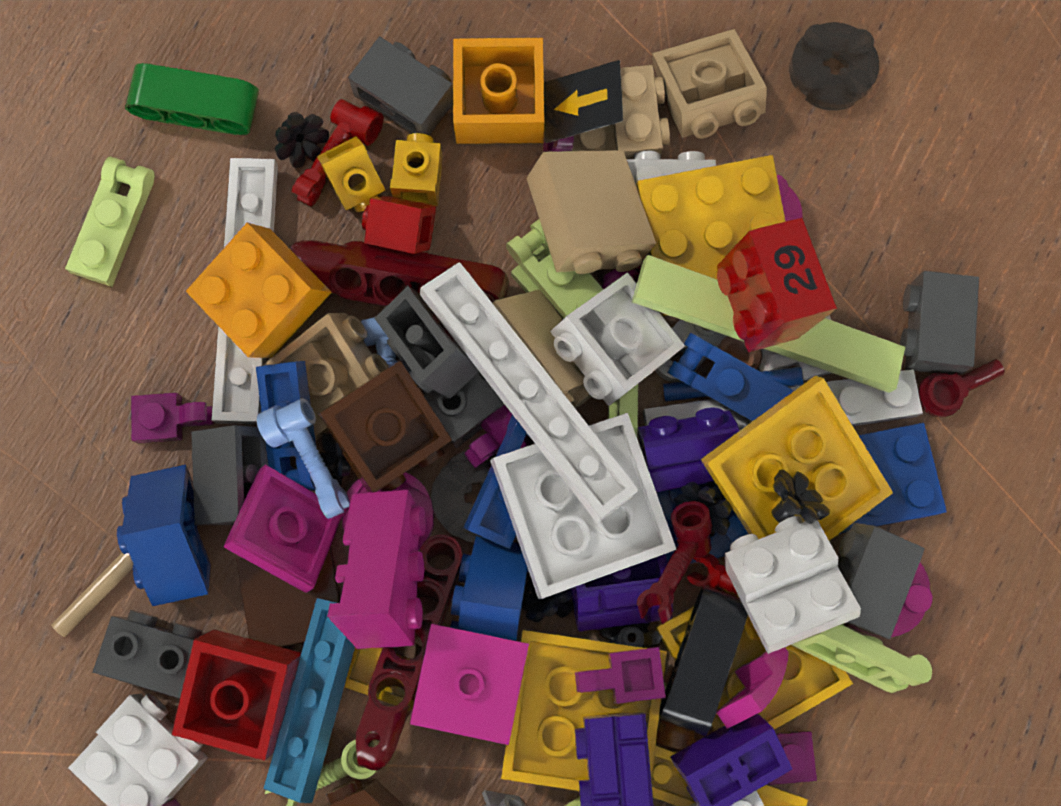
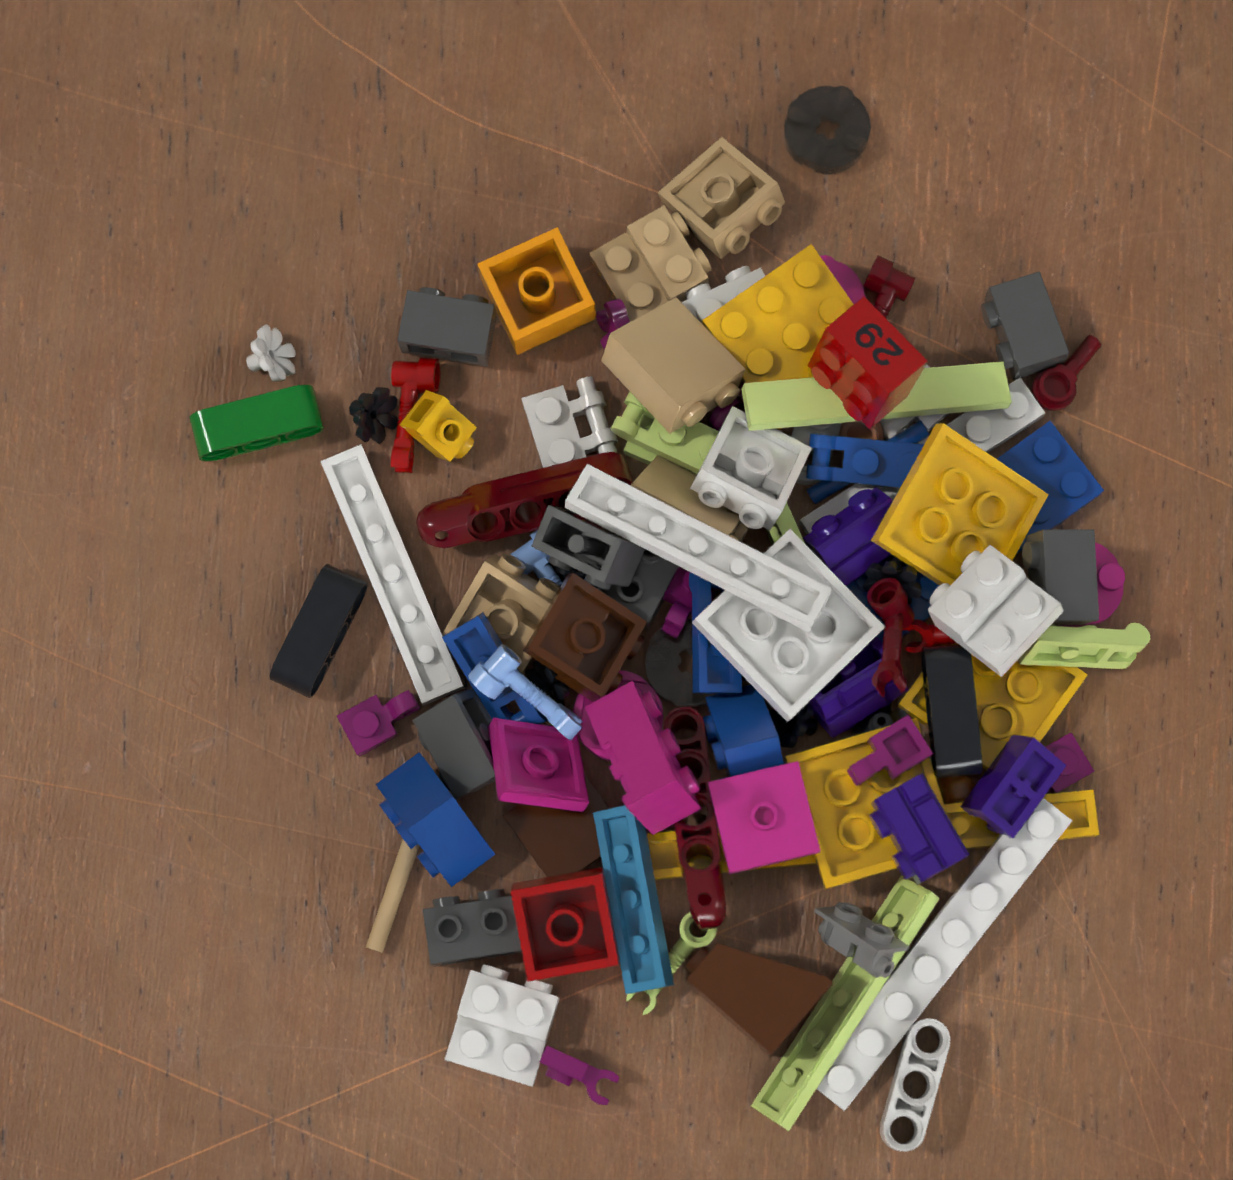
camera: 20 degrees left, 0 degrees up
(110, 222) = (235, 570): yellowish green plate -> none
(147, 313) = (318, 631): none -> black beam
(236, 44) = (271, 355): none -> white plant
(258, 291) = (415, 569): light orange brick -> none
(399, 224) = (504, 453): red brick -> none
(418, 183) = (499, 410): yellow brick -> none
(459, 222) = (554, 425): none -> white plate
(583, 101) = (618, 266): black sticker -> none
(761, 682) = (1007, 708): dark pink slope -> none
(797, 499) = (967, 536): black plant -> none
(828, 227) = (888, 284): none -> dark red brick

